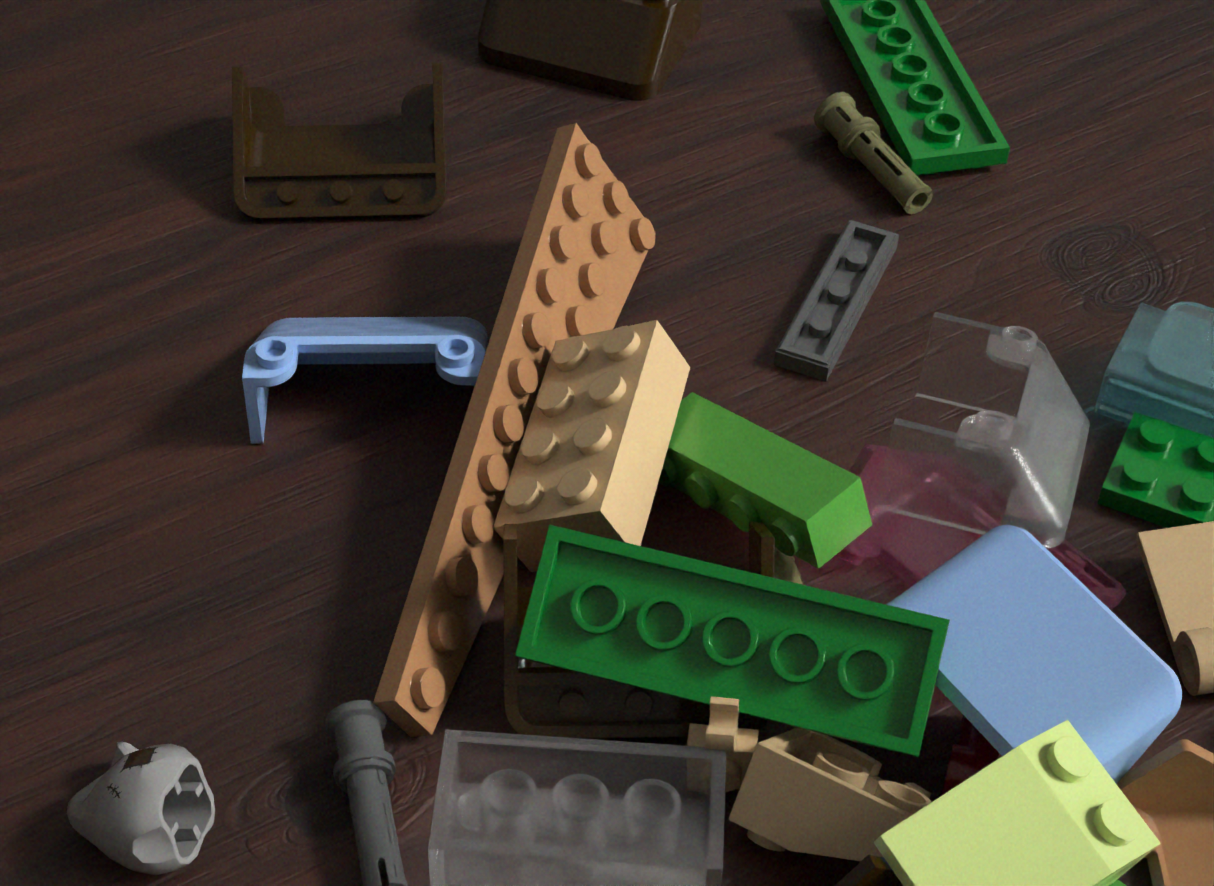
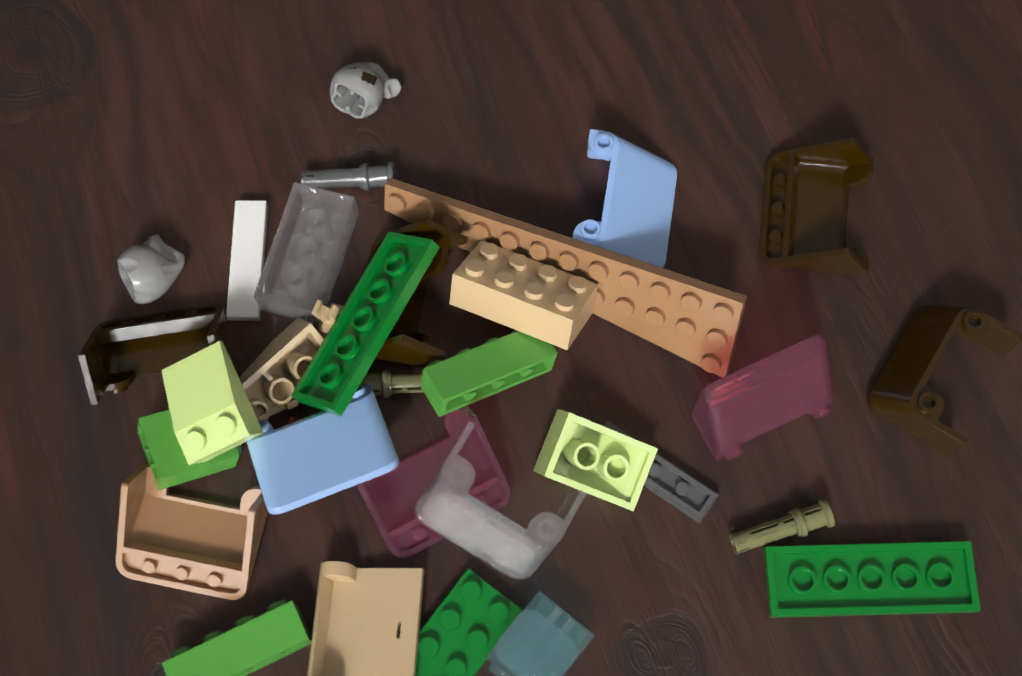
camera: 105 degrees right, 25 degrees up
(647, 107) = (765, 397): none -> clear pink windscreen
(855, 352) = (595, 459): none -> yellowish green slope

